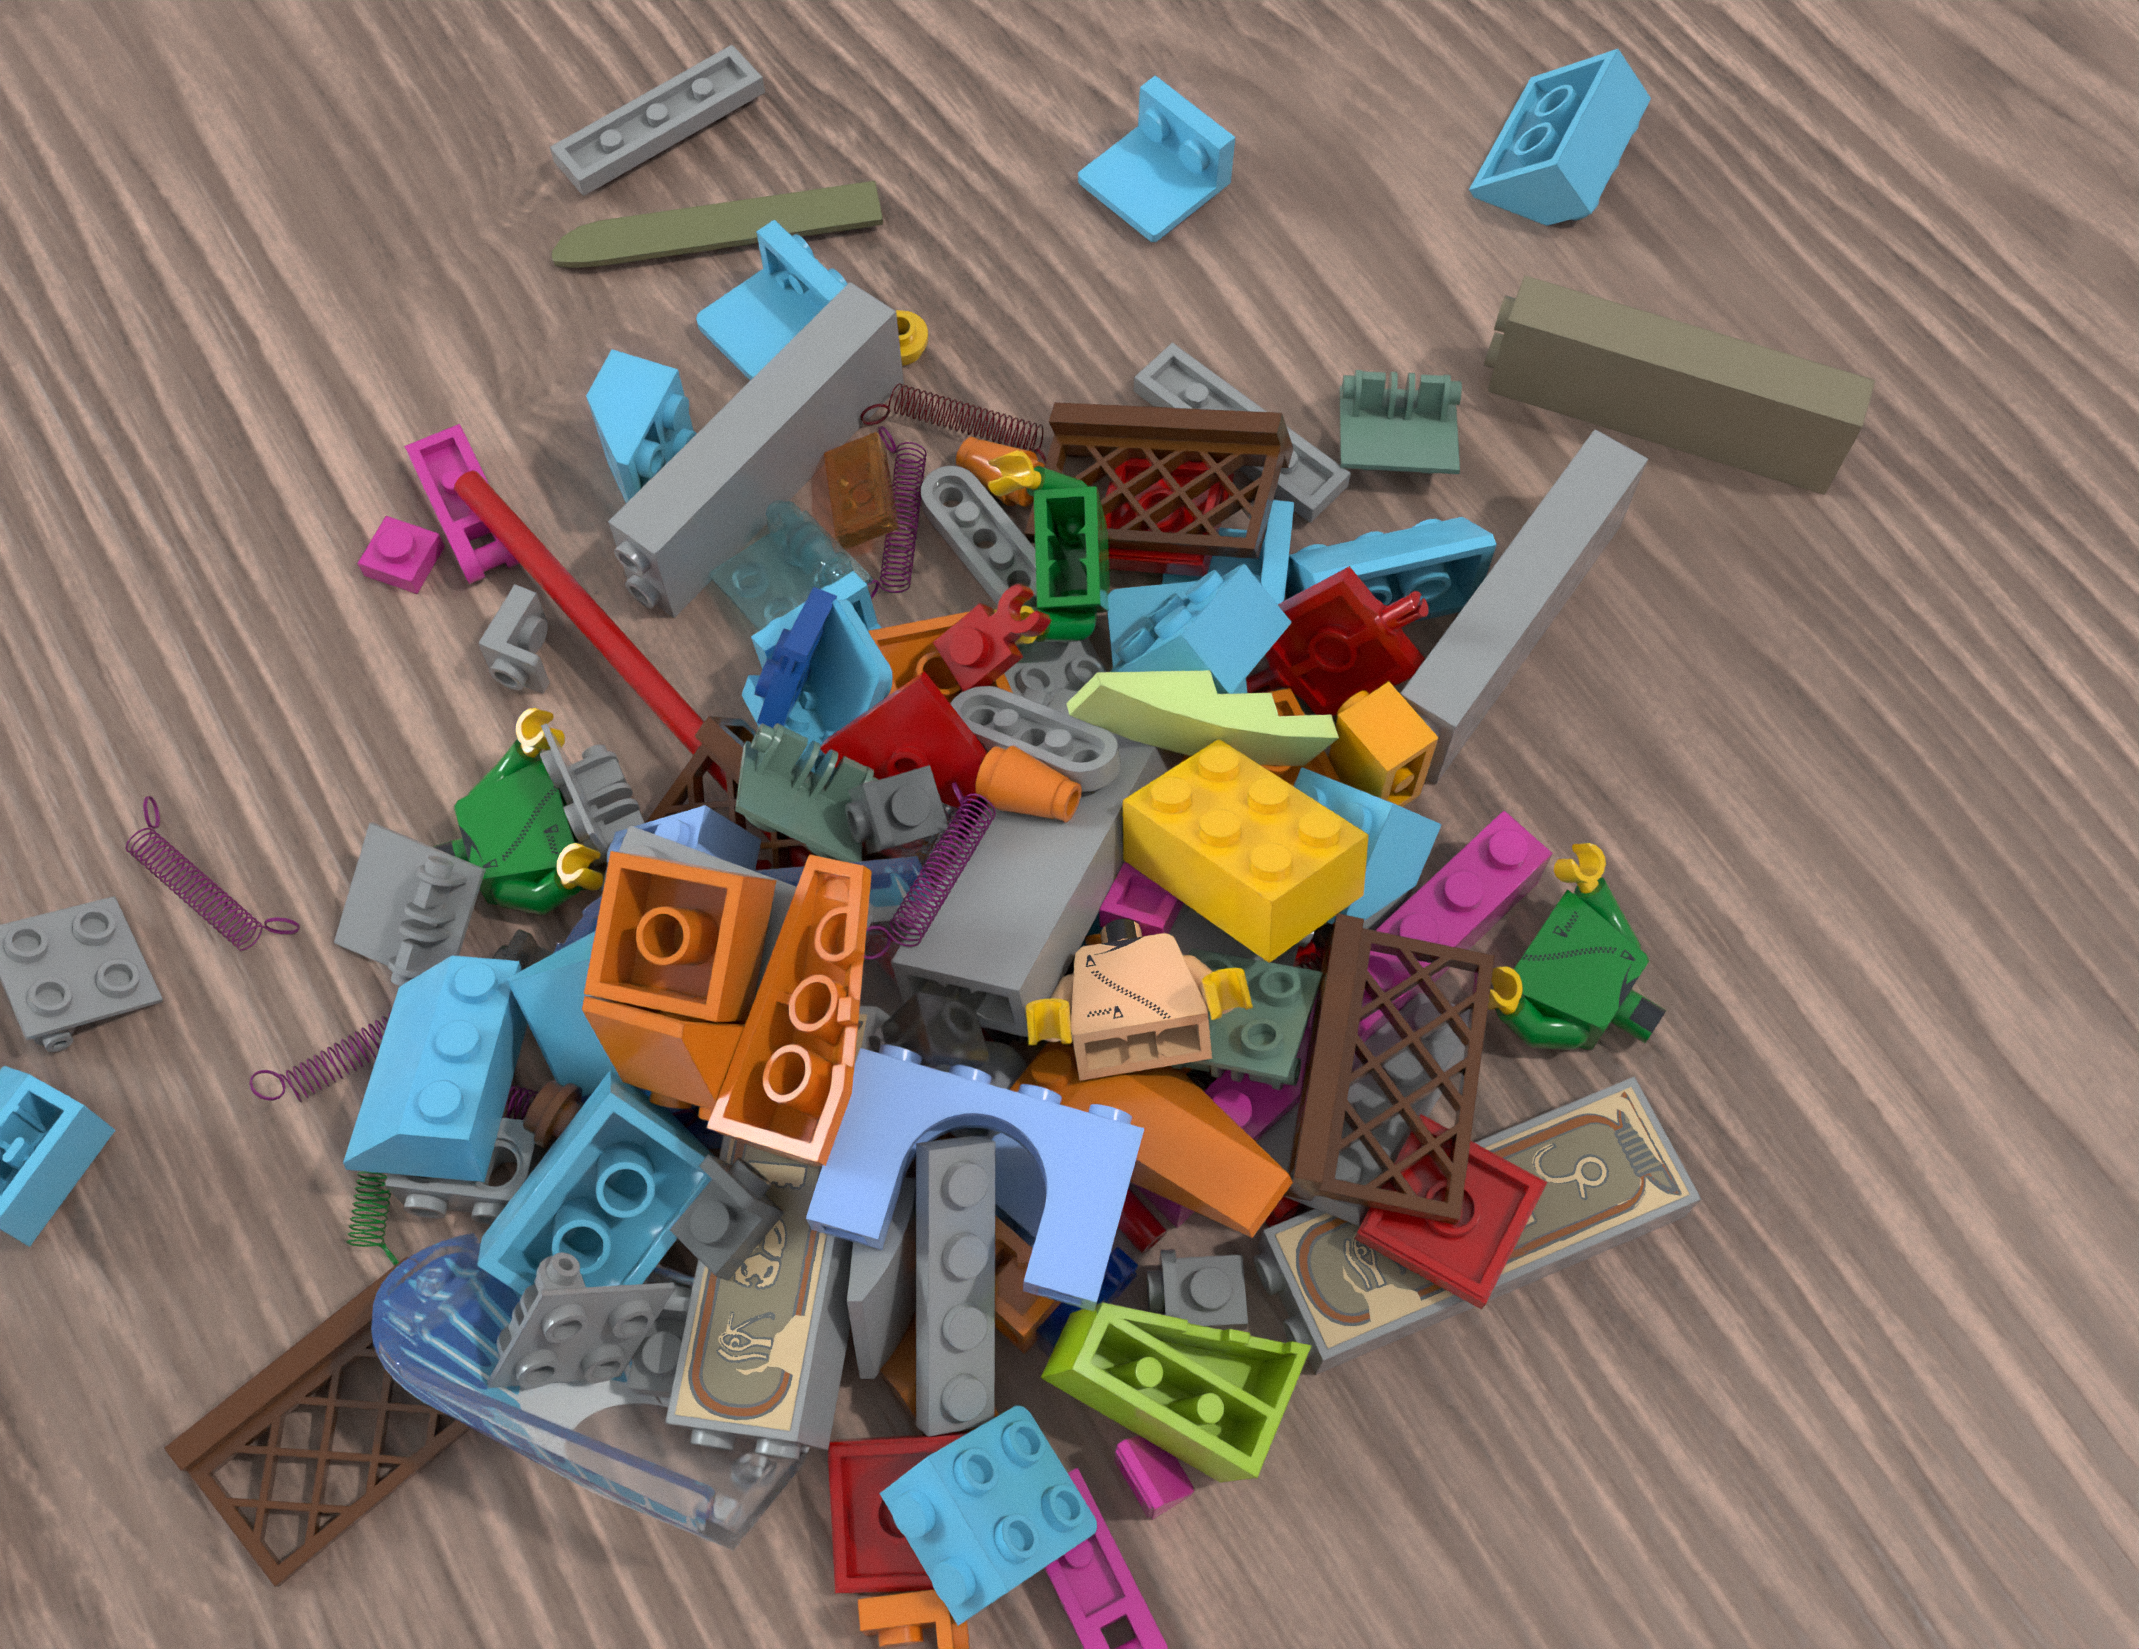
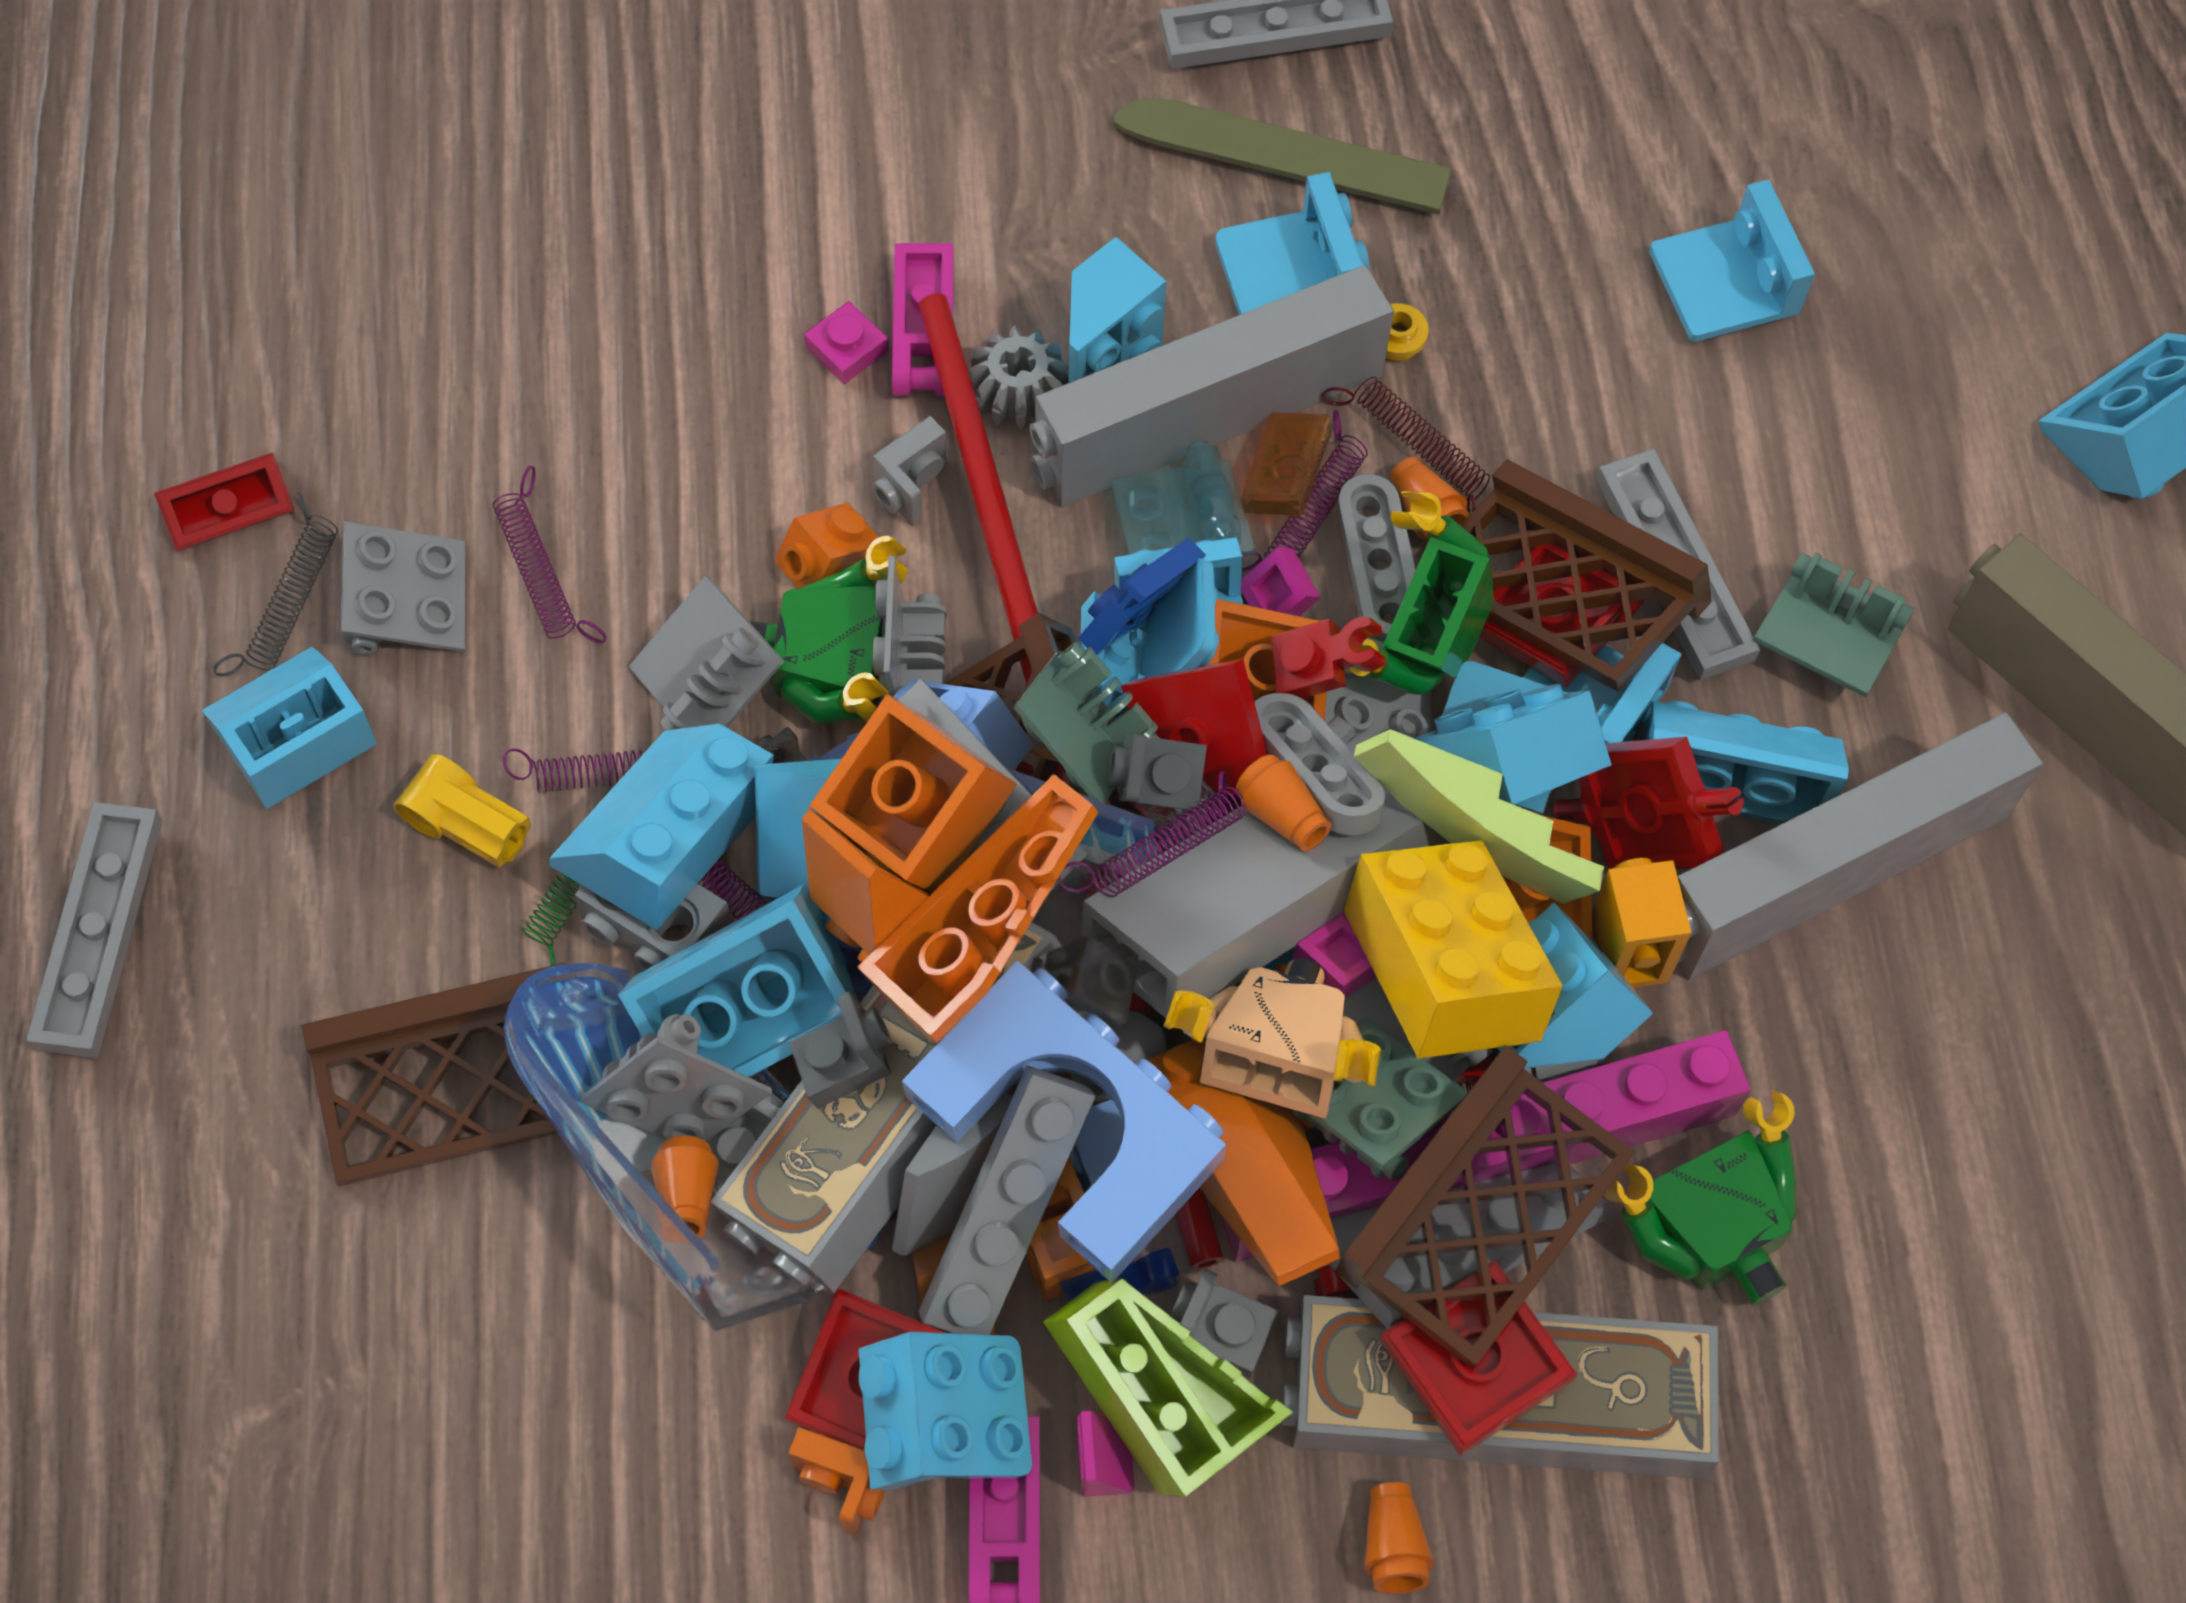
camera: 25 degrees right, 0 degrees up
(216, 1154) = (449, 803): none -> yellow piece
(469, 745) = (823, 544): none -> orange bracket
(552, 1112) = (740, 897): reddish brown plate -> none
(575, 516) = (1014, 372): none -> light grey gear
(630, 1414) = (686, 1178): none -> orange cone
(909, 597) = (1280, 584): none -> dark pink plate
(1457, 1416) = (1396, 1542): none -> orange cone

